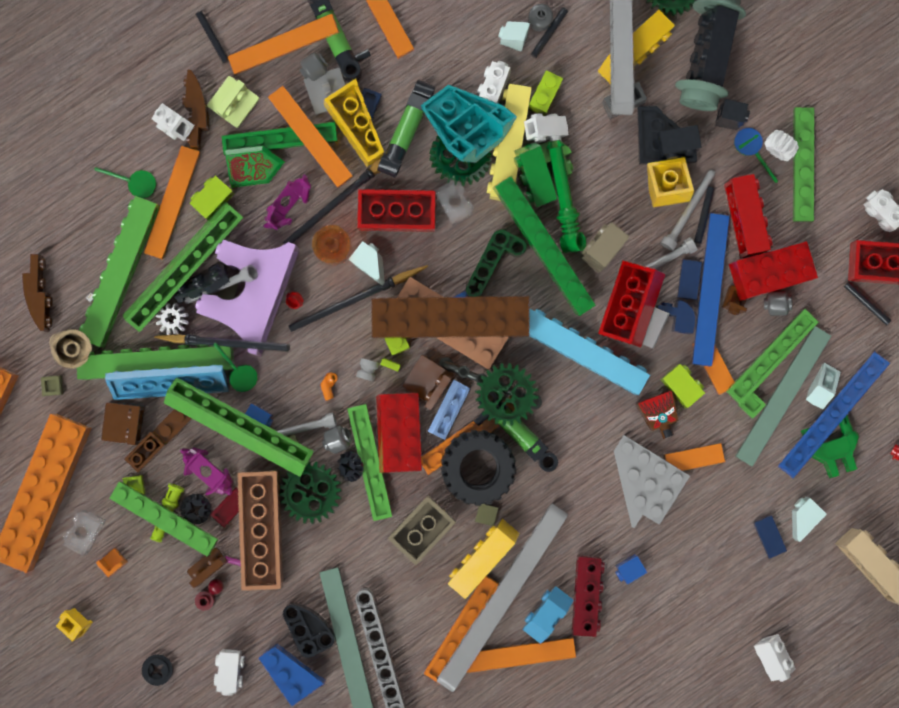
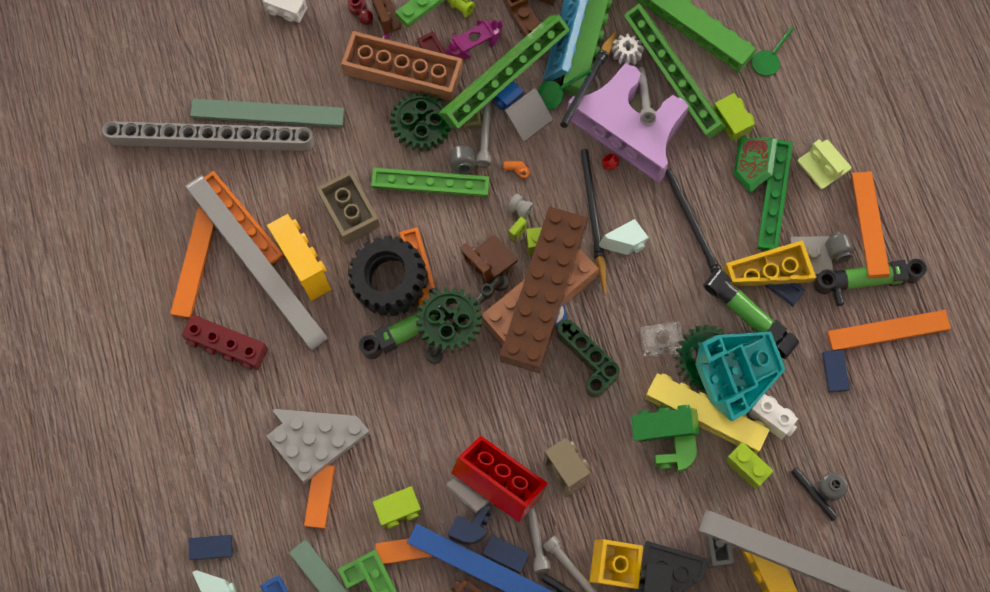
camera: 110 degrees right, 15 degrees down
(172, 123) = (818, 100): white brick -> none
(172, 202) = (740, 83): orange tile -> none
(195, 102) = (834, 130): reddish brown slope -> none
(197, 500) = (435, 25): black gear -> none
(209, 282) = (651, 82): black plate -> none
(212, 37) = (896, 164): black bar -> none
(272, 391) = (529, 114): none -> light grey piece
(276, 212) = (701, 170): magenta piece -> none
(290, 674) = (261, 53): blue wedge -> none
(310, 136) = (768, 221): orange tile -> none
(315, 627) = (295, 88): black beam -> none
(325, 236) = (655, 219): clear orange brick -> none
(355, 463) = (432, 163): black gear -> none
(396, 210) = (669, 279): red brick -> none
(398, 432) = (448, 213): red brick -> none
(432, 41) = (835, 371): none -> dark blue tile
(449, 410) = (454, 269): light blue plate -> none
(486, 514) = (339, 274): olive tile -> none
(514, 34) = (820, 453): light aqua slope -> none
(542, 621) = (221, 298): dark azure brick -> none
(543, 246) = (588, 408): green brick -> none
(546, 127) = (710, 459): white brick -> none
(572, 239) = (615, 445): green piece -> none
(587, 352) = (467, 418): medium azure brick -> none
(630, 569) = (233, 393): blue brick -> none
(659, 413) = (378, 473): torso -> none
(775, 658) = (87, 507): white brick -> none

